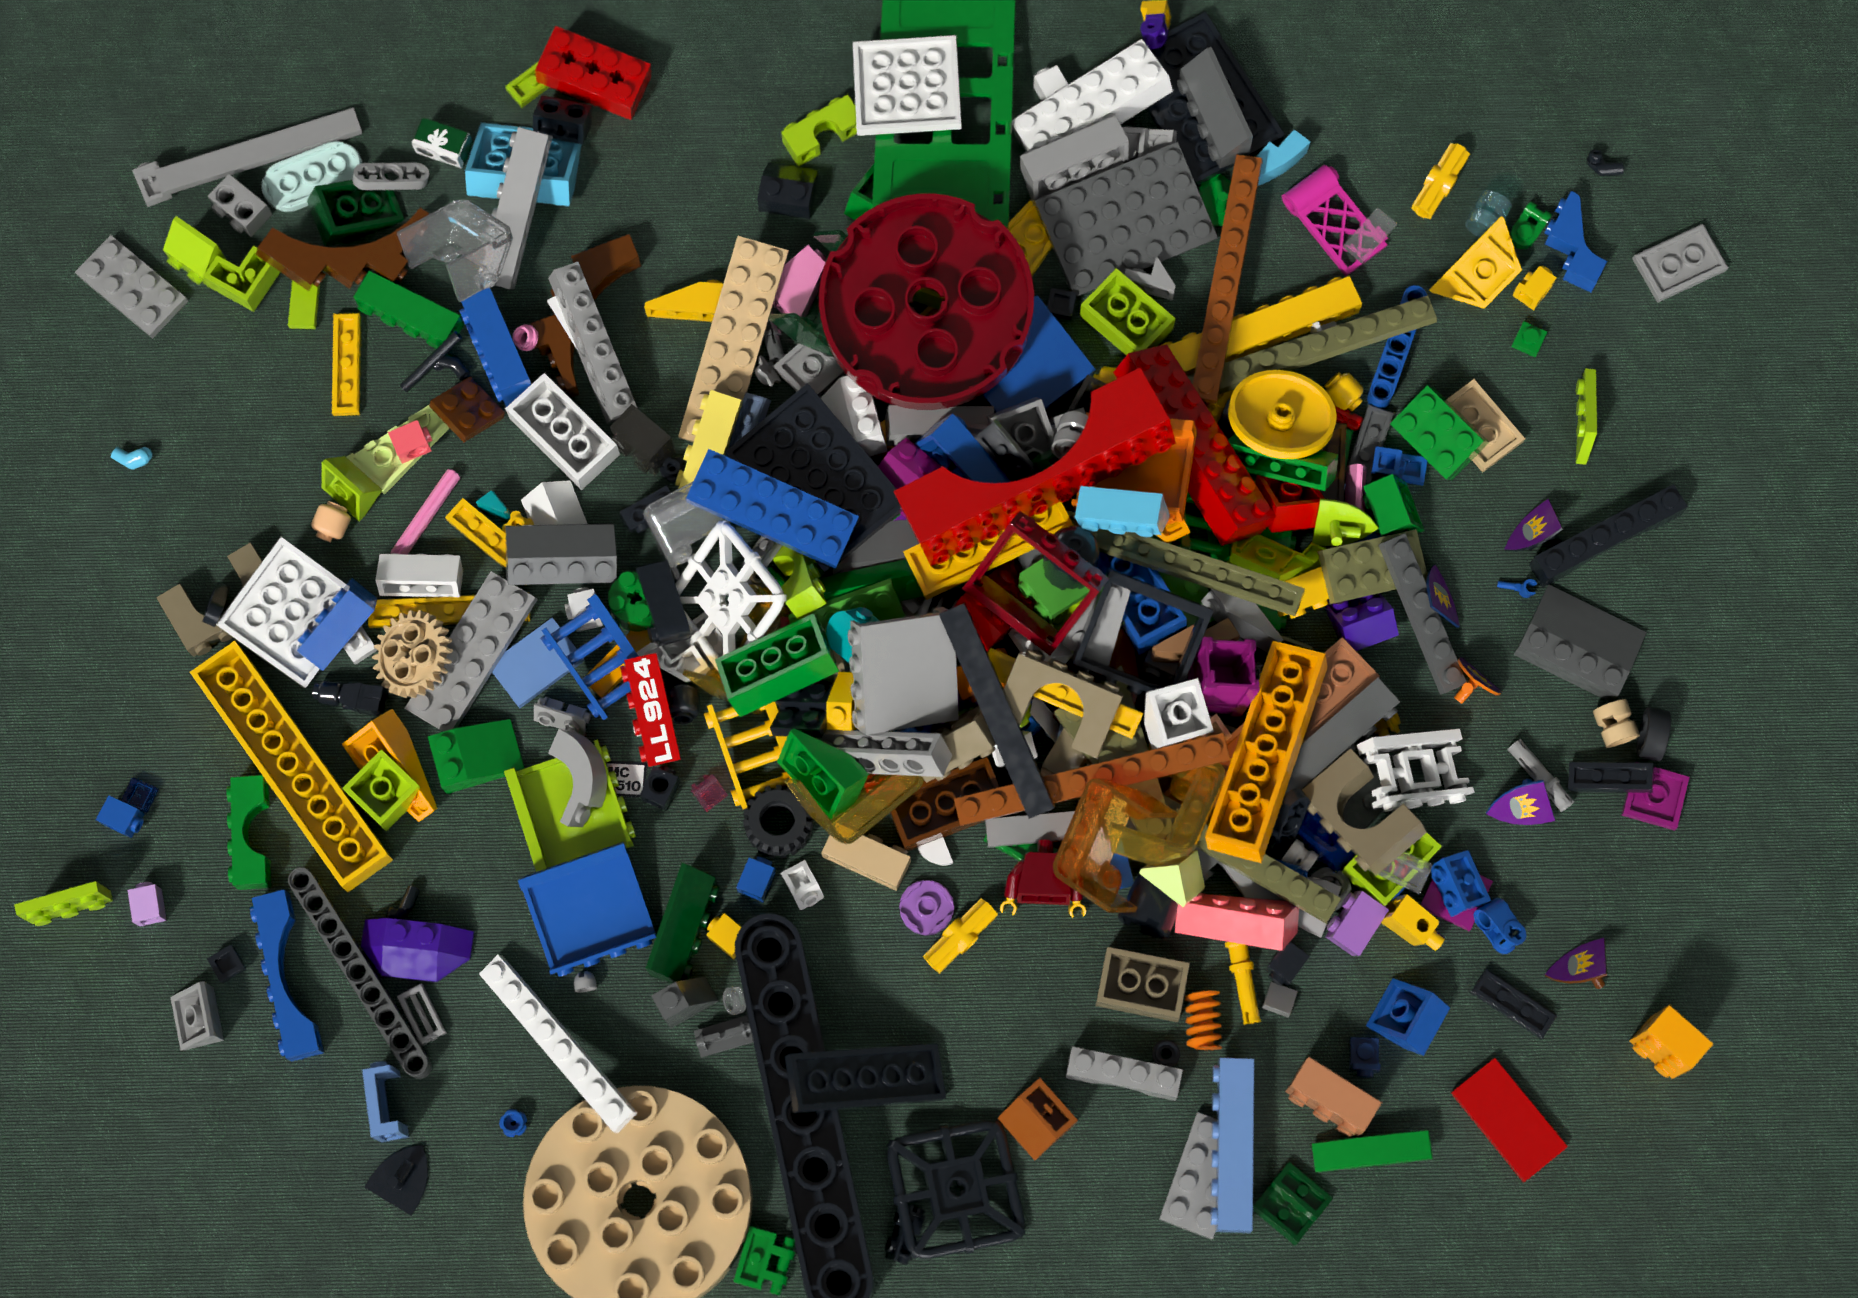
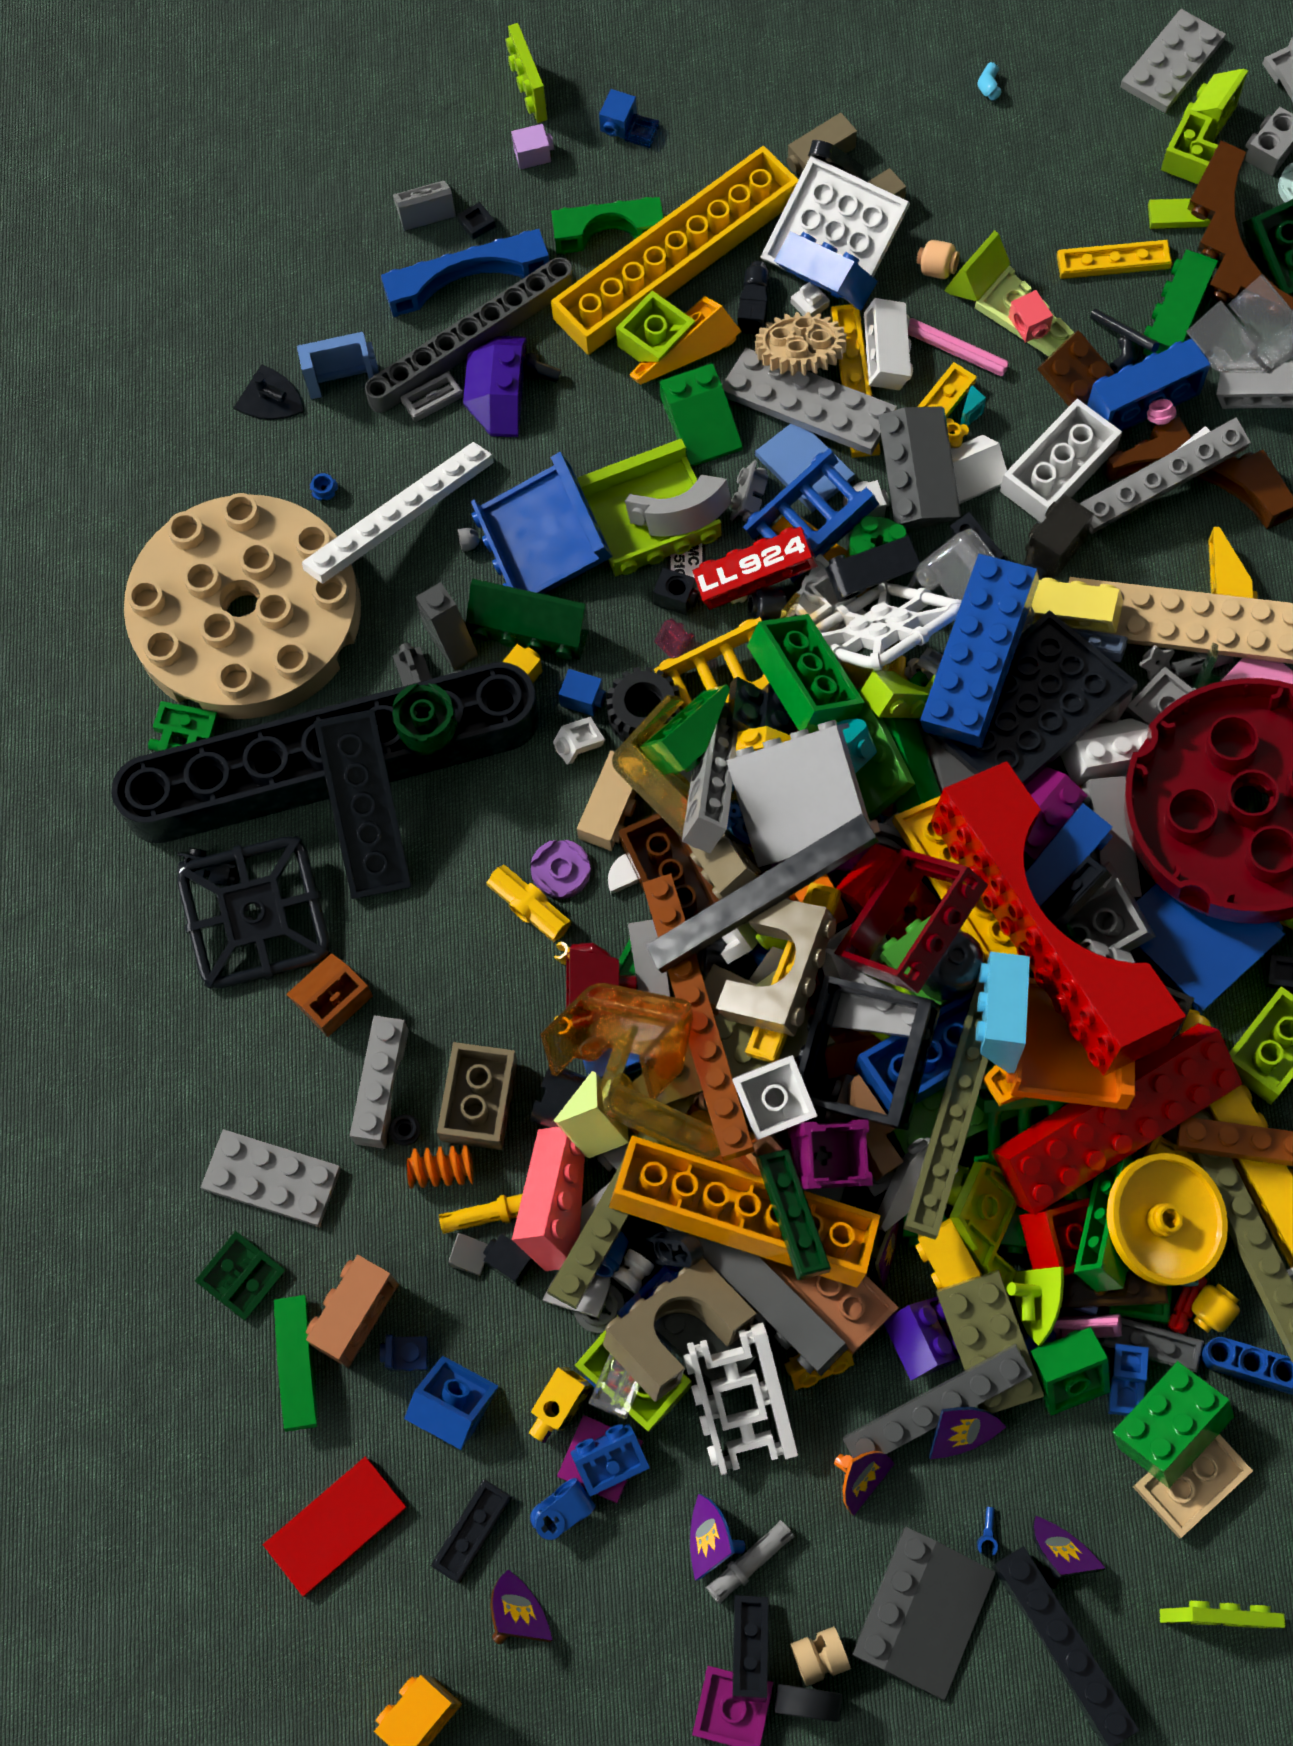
camera: 90 degrees right, 5 degrees down
(794, 1027) = (437, 716): none -> dark green brick
(1234, 1145) = (297, 1201): medium blue brick -> none
(1275, 707) = (793, 1214): none -> dark green tile
(1356, 922) = (556, 1335): medium lavender brick -> none

